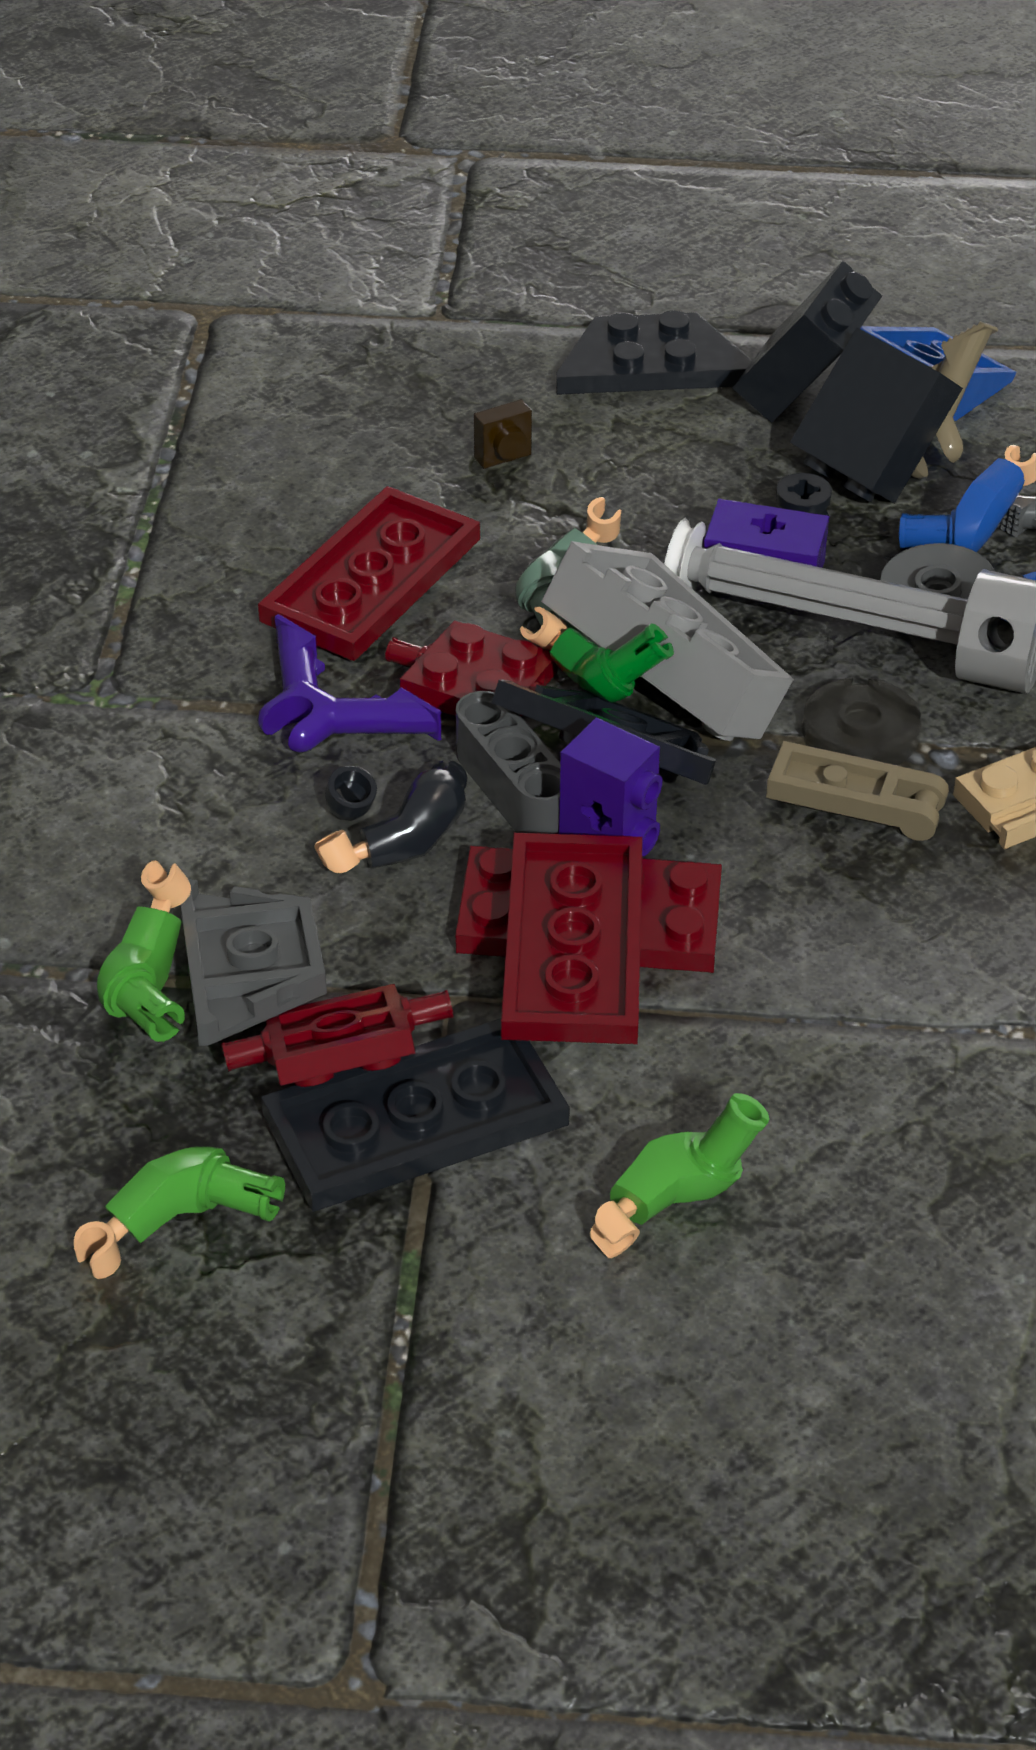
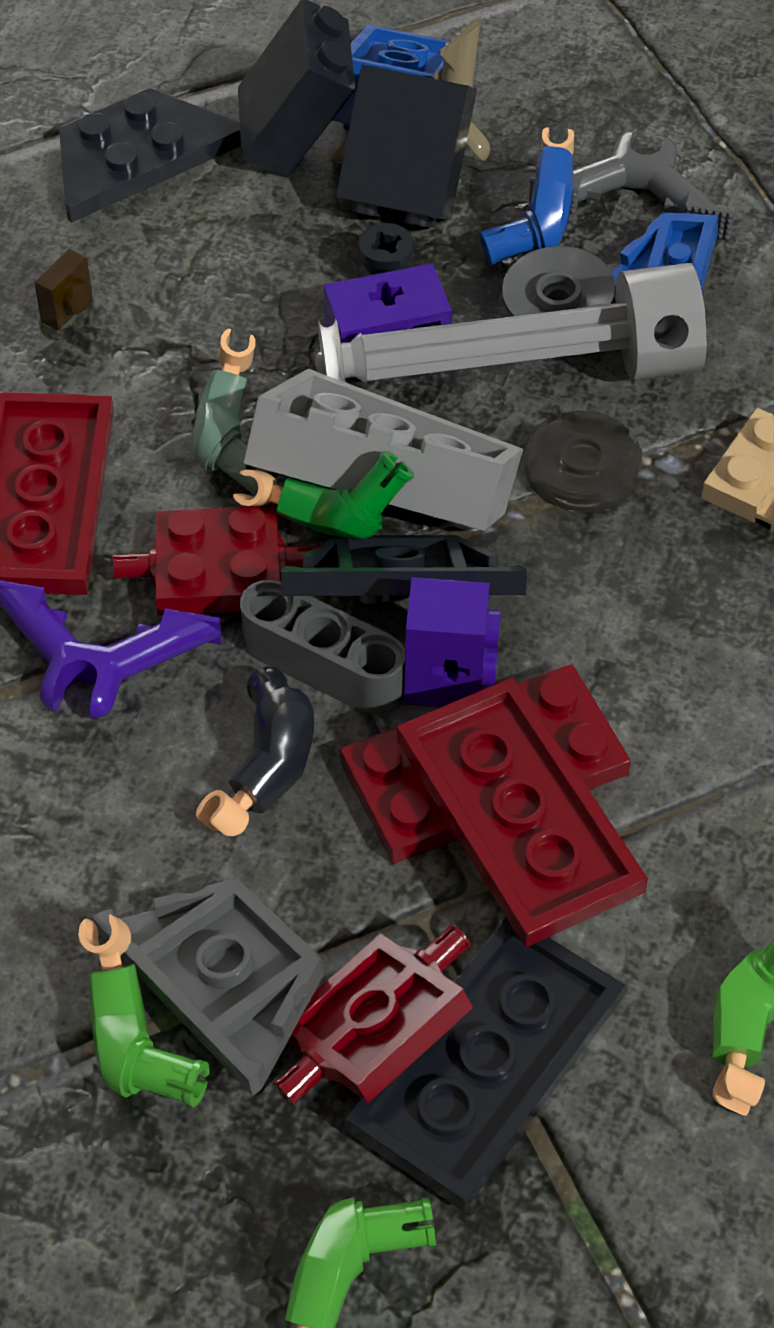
camera: 30 degrees left, 10 degrees up
(357, 791) = (192, 737): black hinge -> none
(858, 788) = (630, 531): dark tan plate -> none

